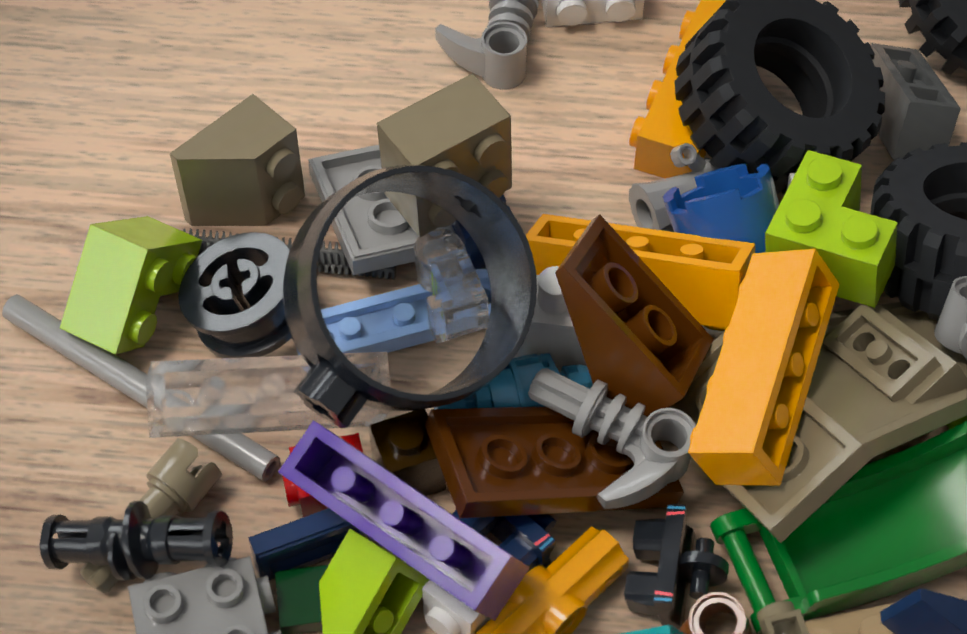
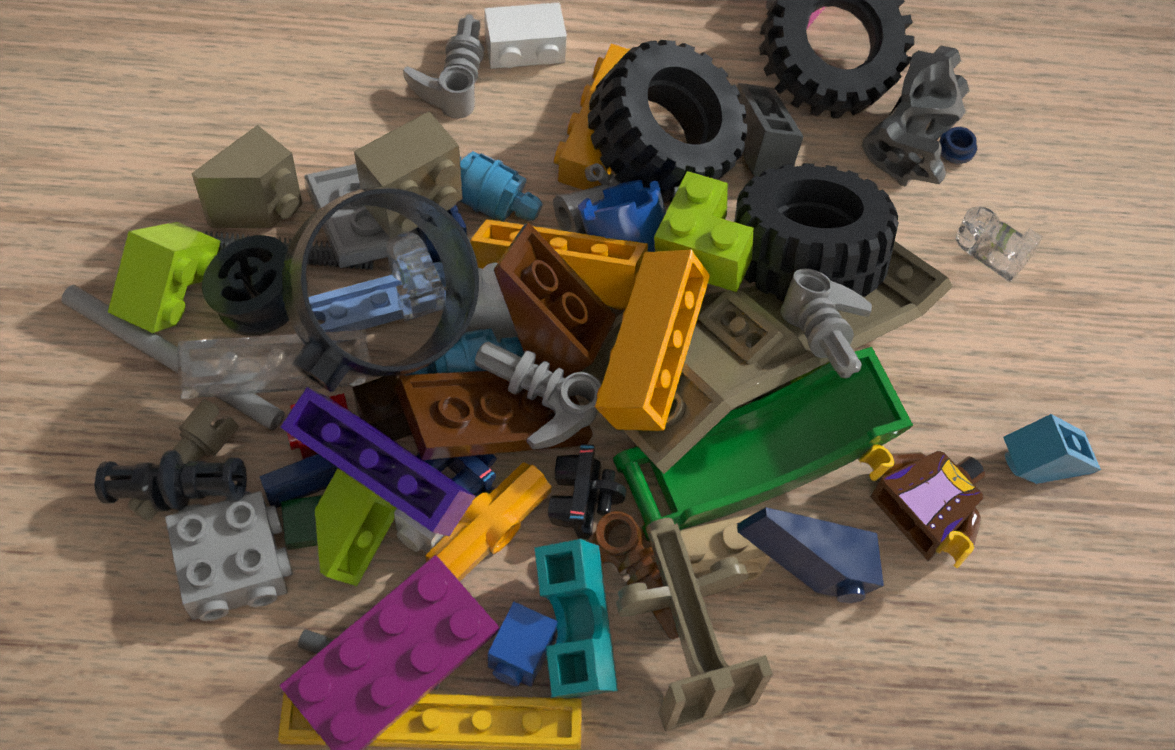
camera: 10 degrees left, 5 degrees up
(555, 177) = (496, 189): none -> dark azure piece

